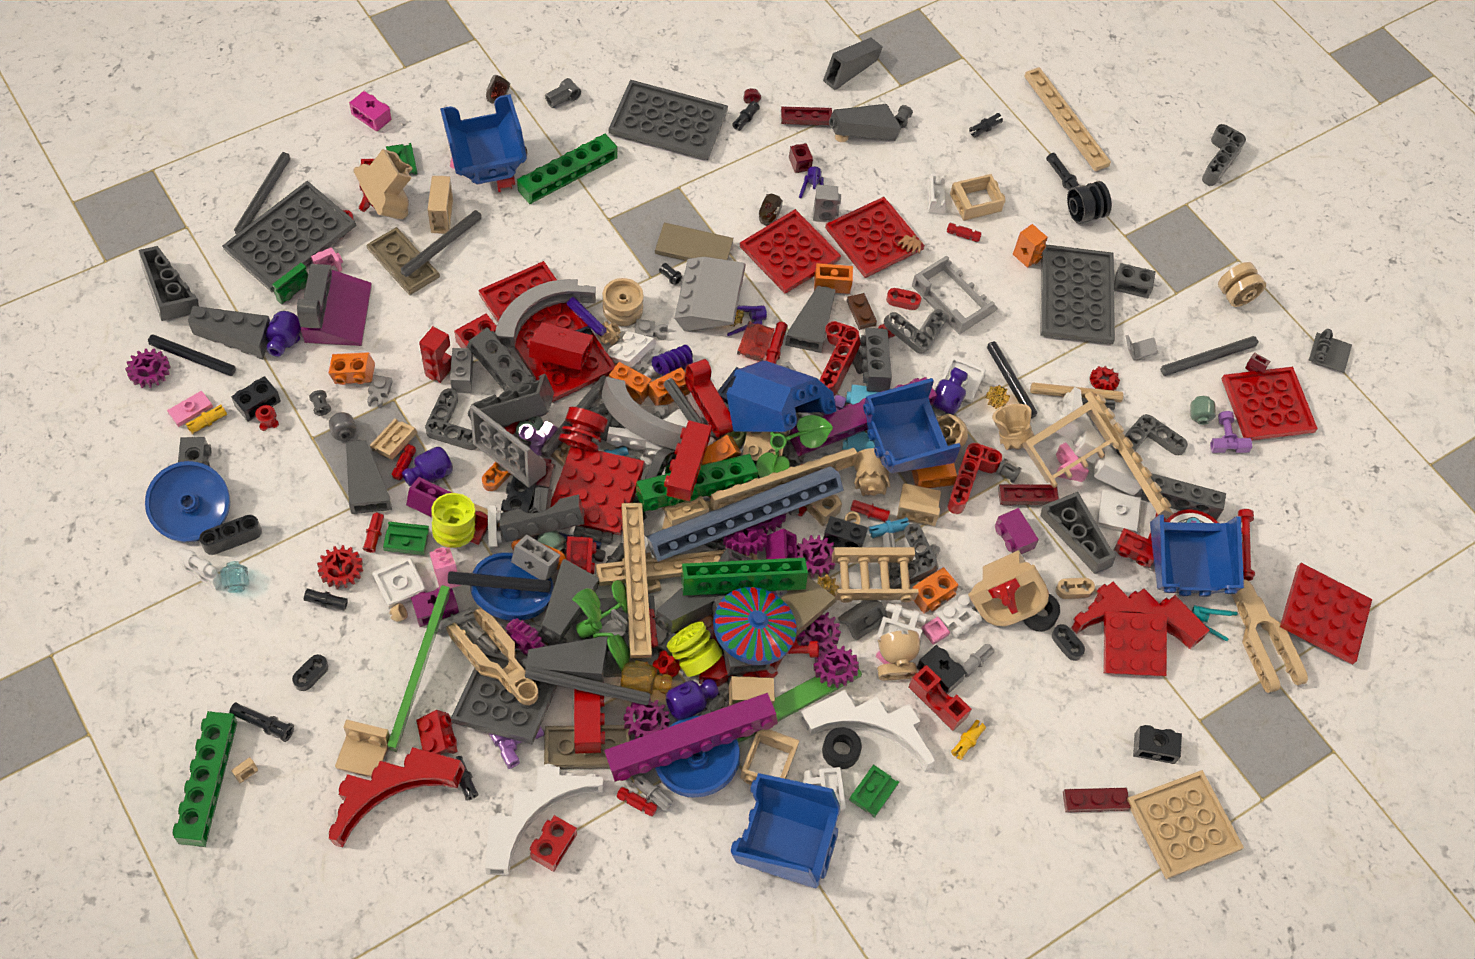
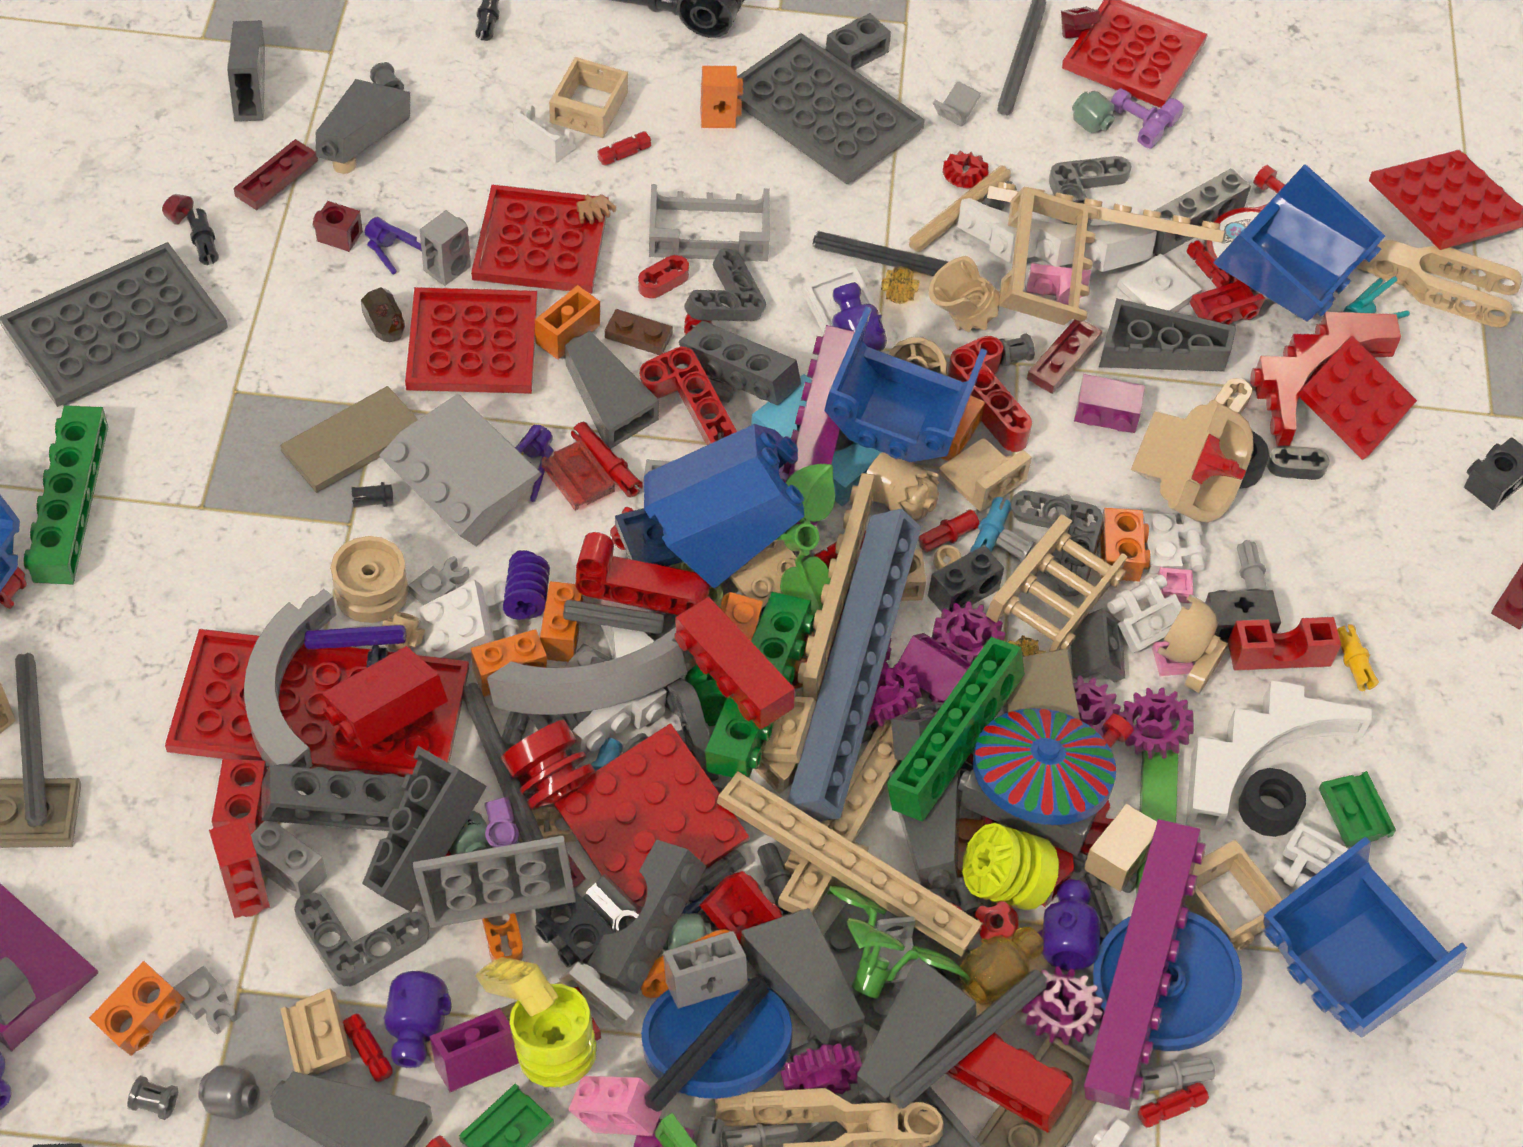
camera: 50 degrees left, 5 degrees down
(461, 487) = (518, 981): none -> light yellow beam

